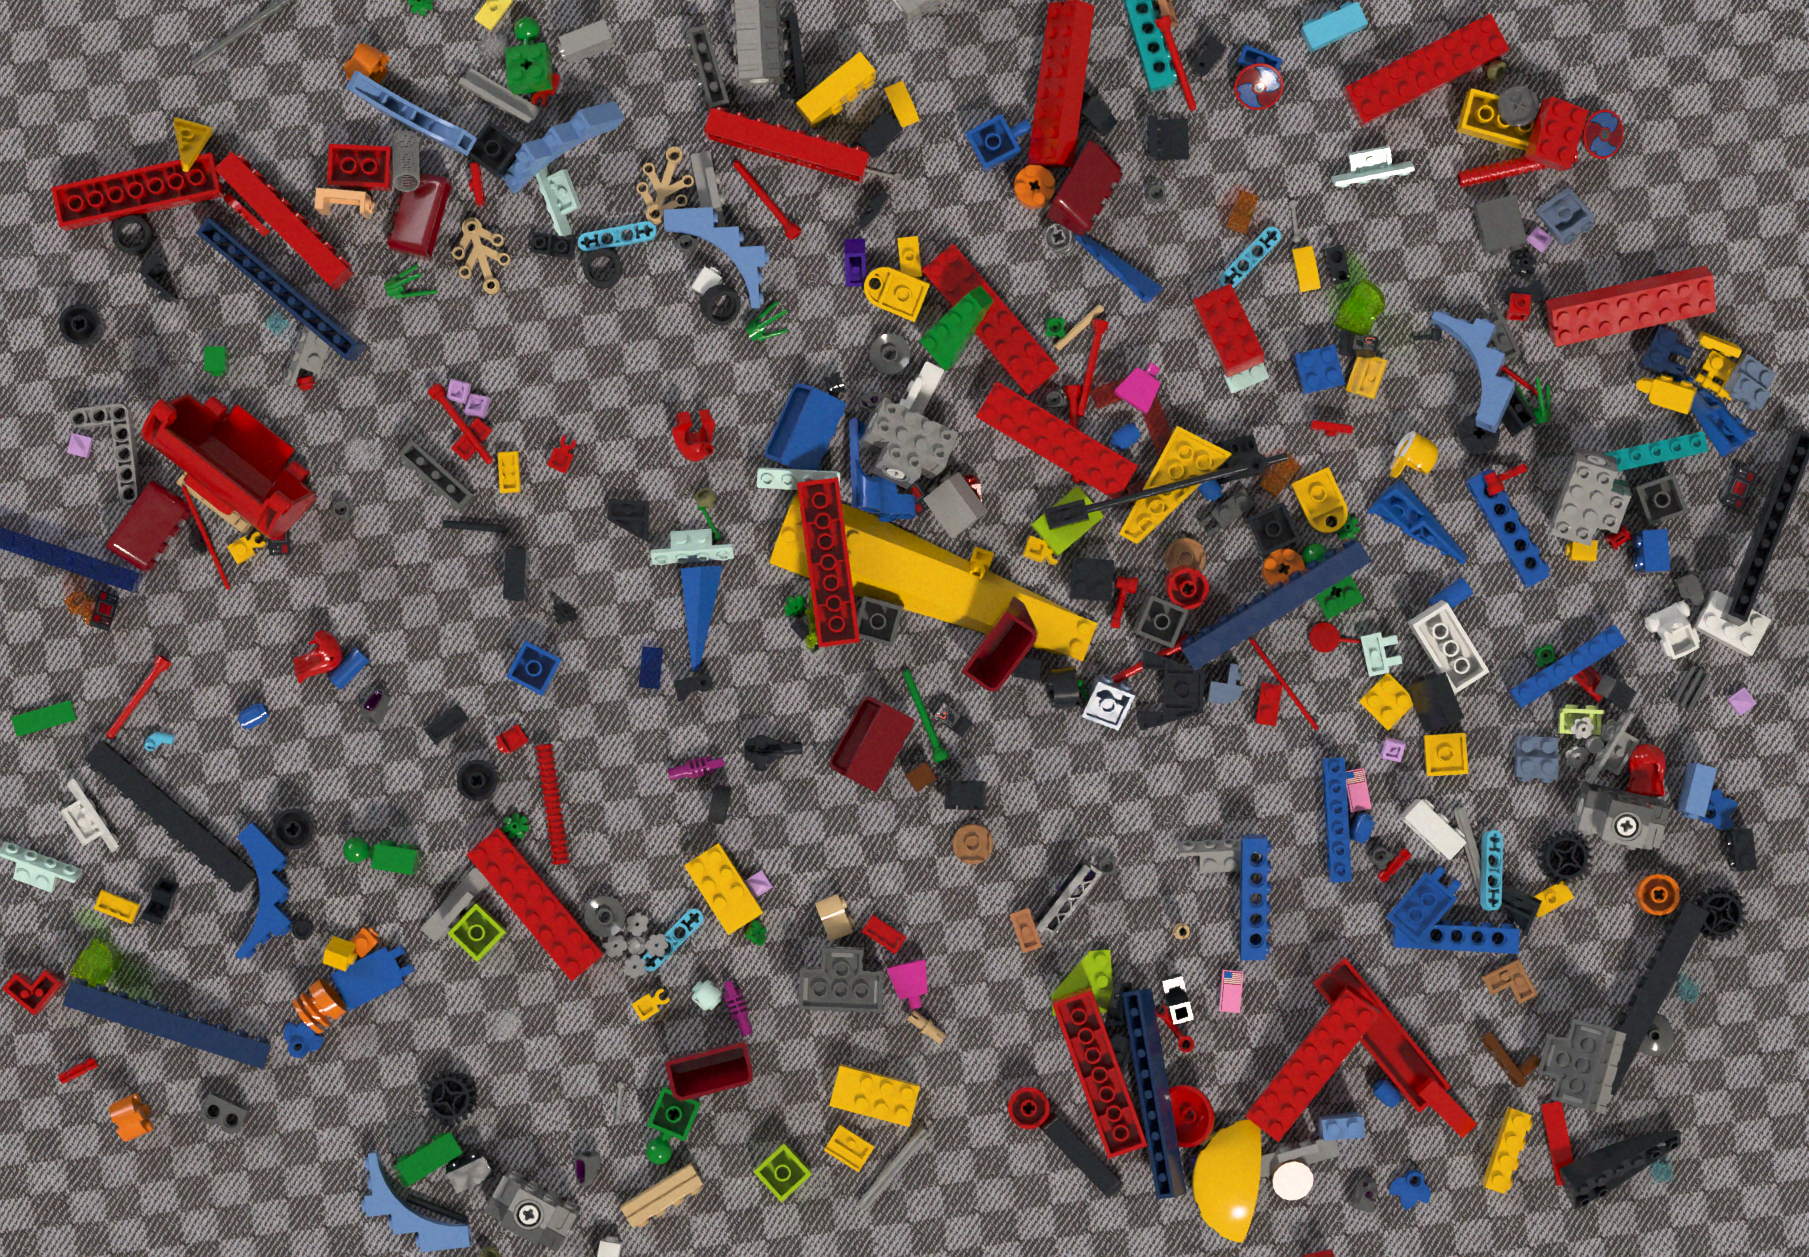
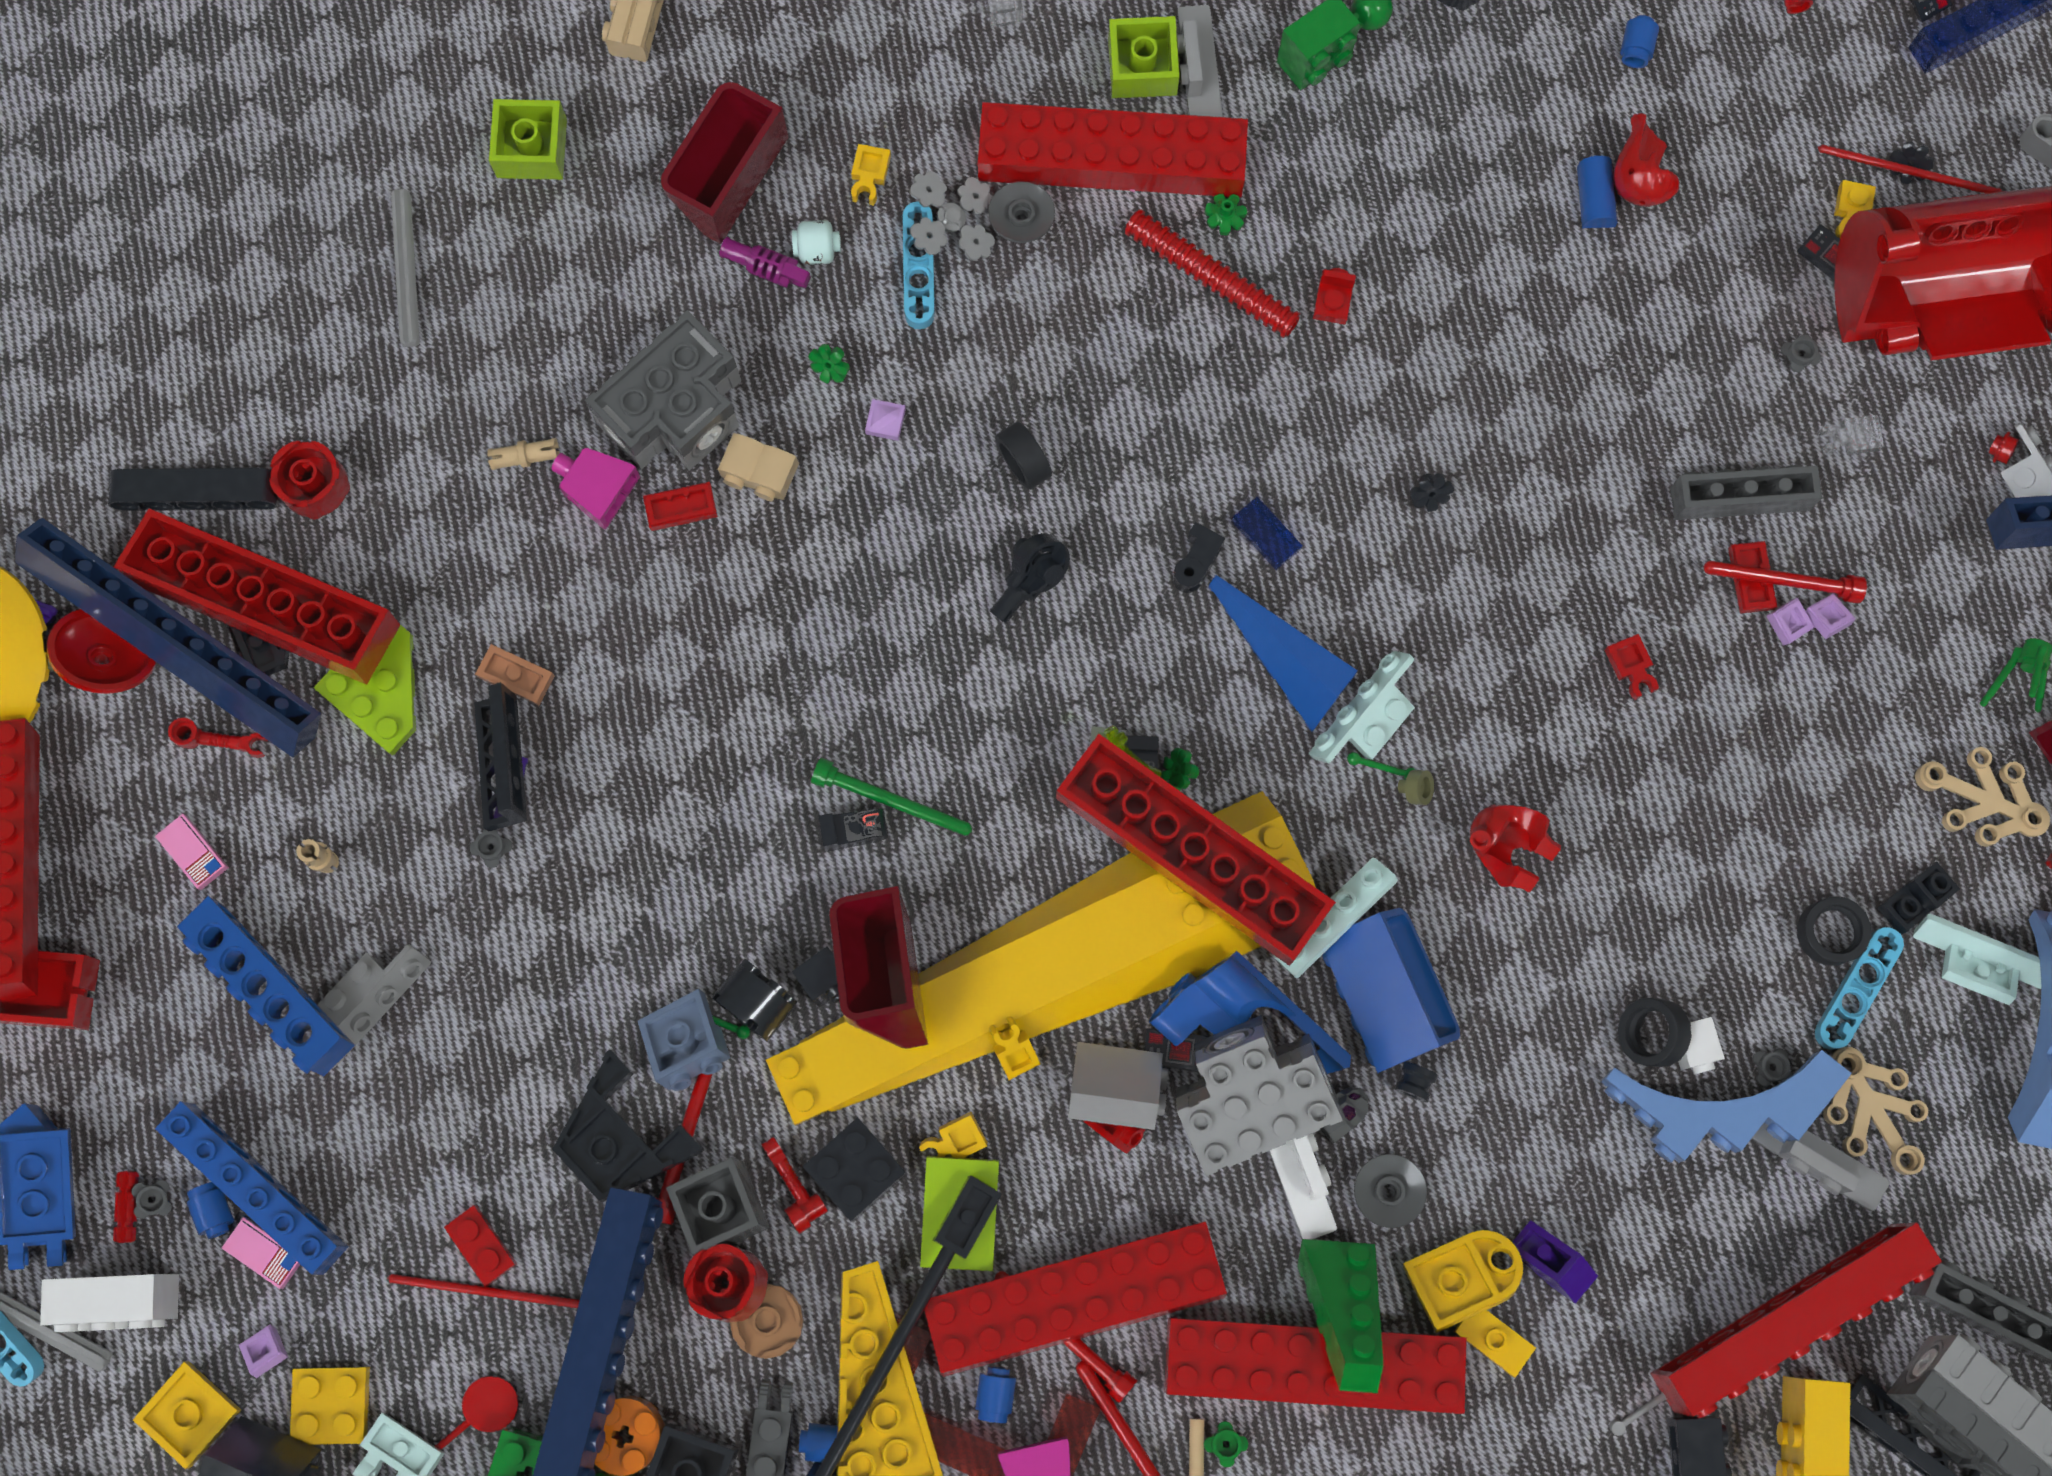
camera: 130 degrees right, 10 degrees down
(149, 526) = (1986, 118): dark red windscreen -> none
(375, 707) = (1521, 181): dark grey rock -> none
(446, 724) = (1423, 242): black tile -> none
(466, 781) = (1322, 213): black brick -> none
(473, 526) = (1639, 484): black bar -> none
(509, 472) = (1669, 584): yellow plate -> none
(516, 574) = (1533, 473): black brick -> none
(534, 668) = (1396, 394): blue brick -> none
(620, 1085) = (811, 61): light grey hinge -> none
(630, 516) = (1478, 677): black wing -> none
(659, 1149) = (707, 63): green brick -> none
(696, 768) = (1093, 473): magenta hinge -> none
(724, 888) = (918, 371): yellow brick -> none
(756, 329) = (1580, 1052): green plant -> none
(792, 230) = (1669, 1219): red piece -> none
(849, 1148) = (479, 239): yellow plate -> none
(871, 743) = (919, 701): dark red windscreen -> none
(874, 1095) = (507, 320): yellow brick -> none
(877, 204) = (1605, 1364): black slope -> none
(879, 620) = (1062, 852): dark grey brick -> none
(920, 777) = (820, 721): reddish brown panel -> none
(965, 794) = (745, 753): black brick -> none
(972, 844) = (680, 712): medium nougat tile -> none
(1052, 406) = (1137, 1358): dark grey plate -> none
(1116, 1010) = (305, 684): black wing -> none
(1177, 999) = (245, 773): brick -> none
(1226, 692) = (547, 1203): sand blue brick -> none

